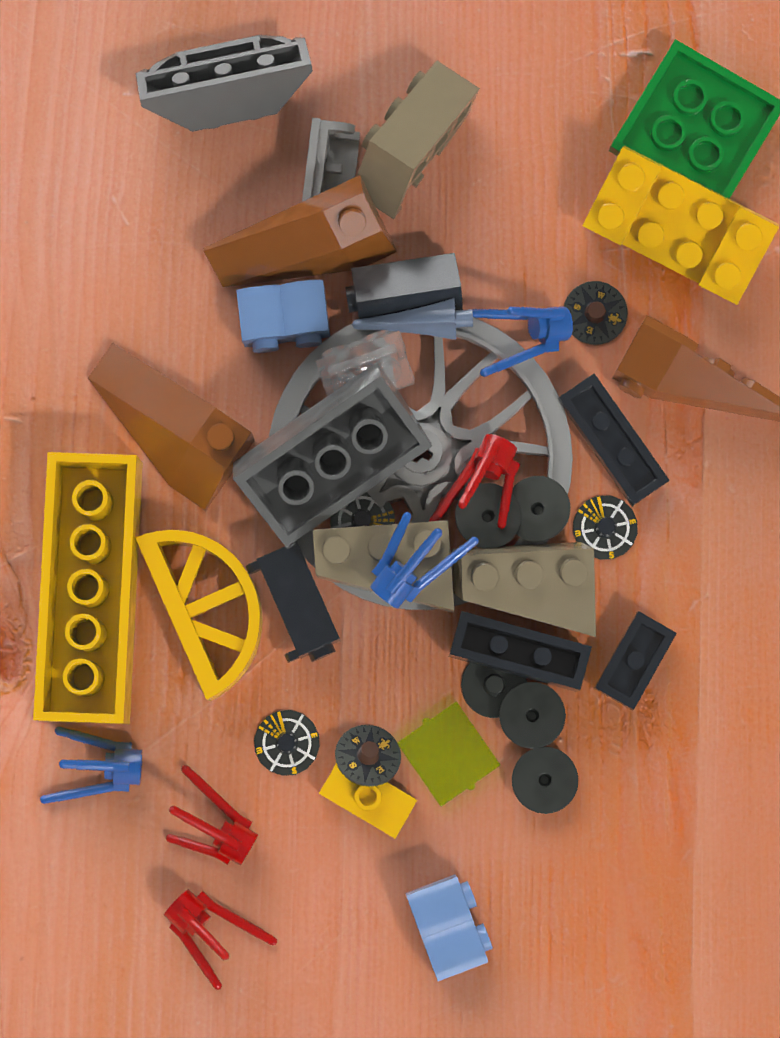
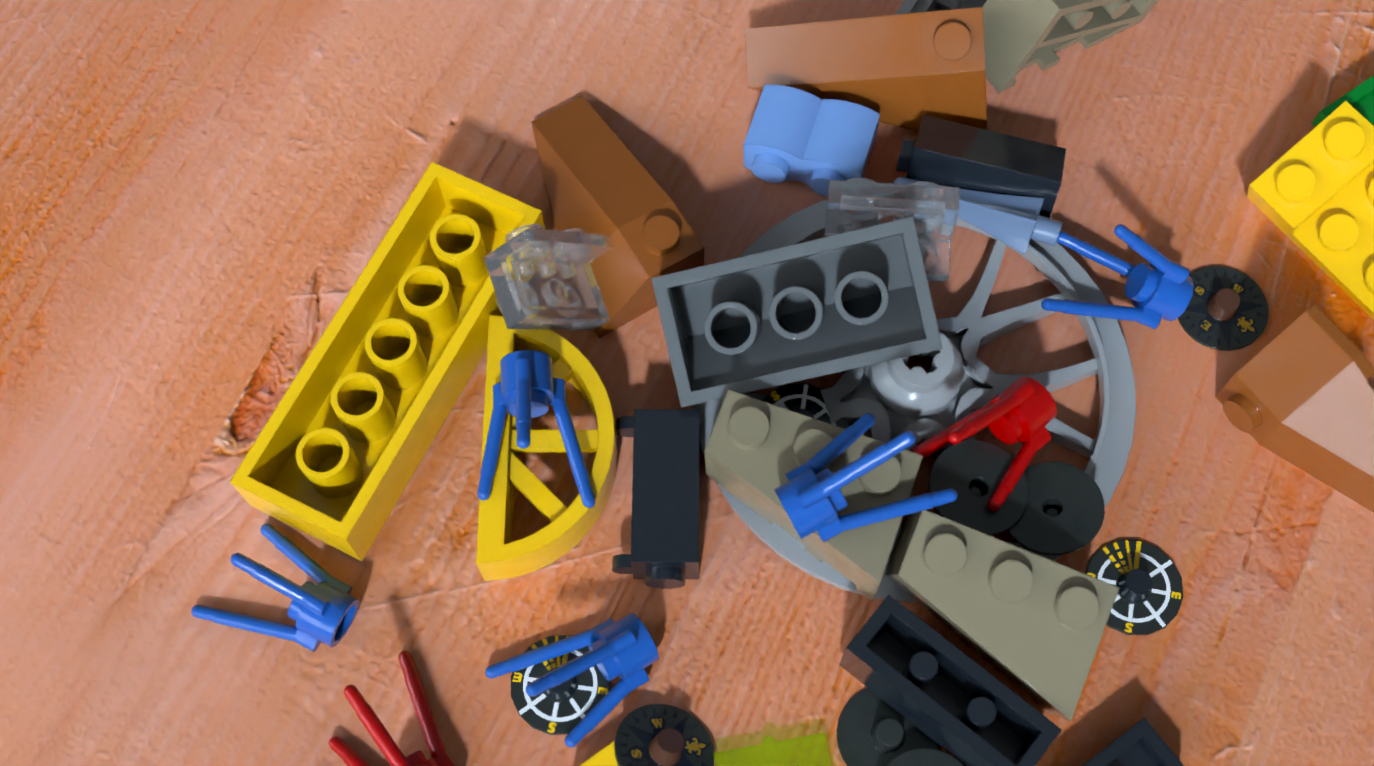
camera: 25 degrees right, 15 degrees down
(165, 501) = (548, 279): none -> clear bracket
(186, 579) = (525, 392): none -> blue plant
(315, 708) = (614, 647): none -> blue plant
(613, 440) = (1192, 473): black plate -> none

